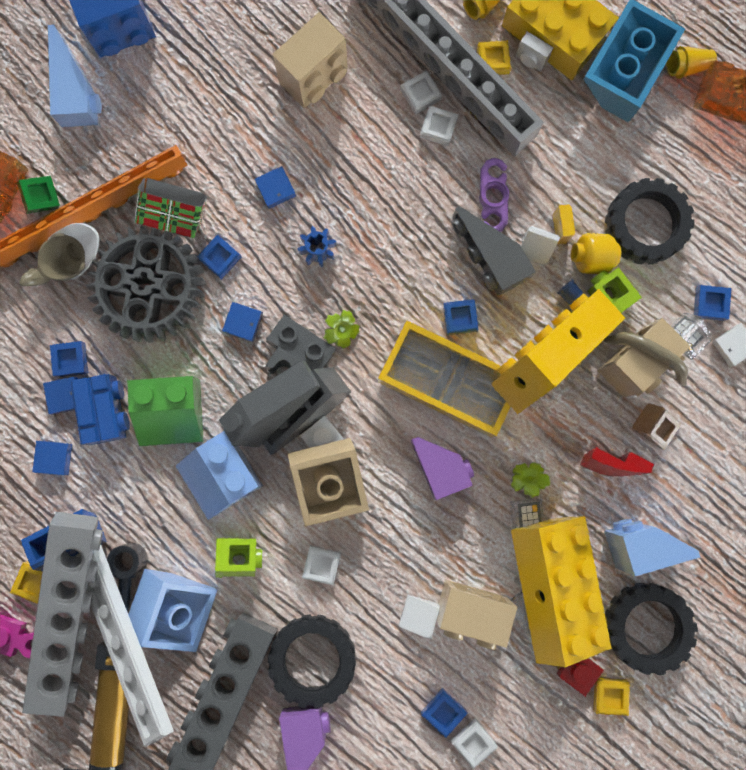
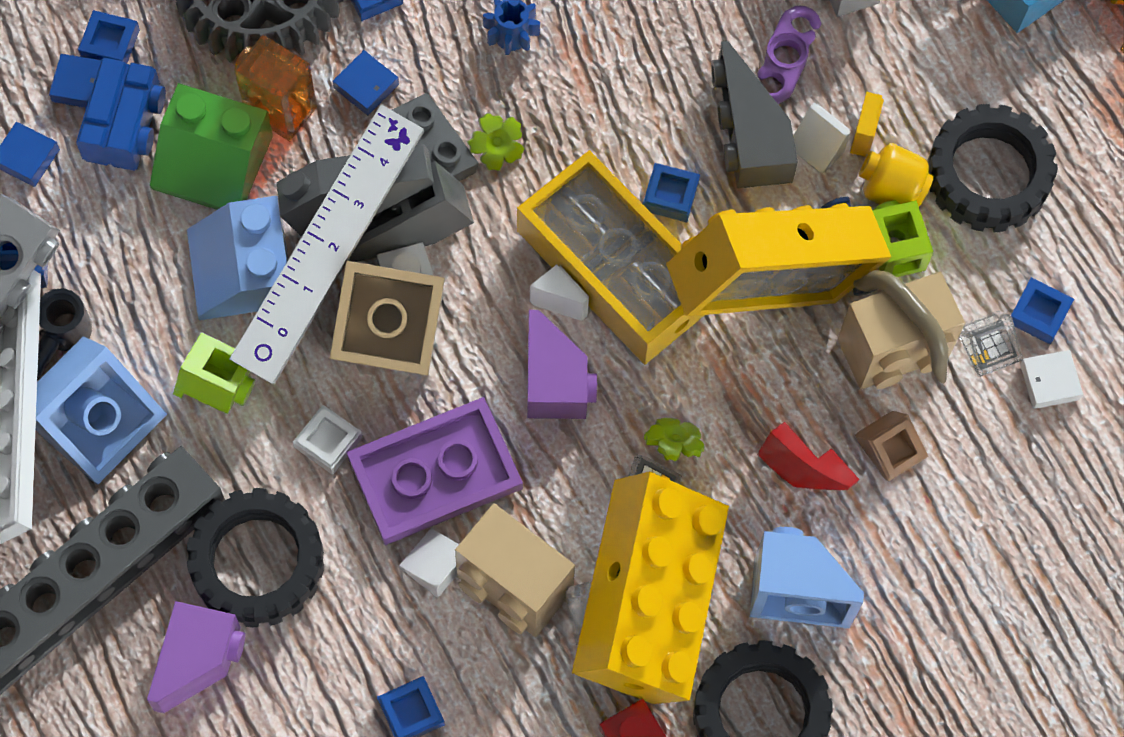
camera: 20 degrees right, 15 degrees down
(188, 355) = (278, 83): none -> clear orange brick
(272, 455) = (327, 244): none -> white tile
(395, 561) = (434, 470): none -> medium lavender plate
(423, 415) = (559, 294): none -> white slope

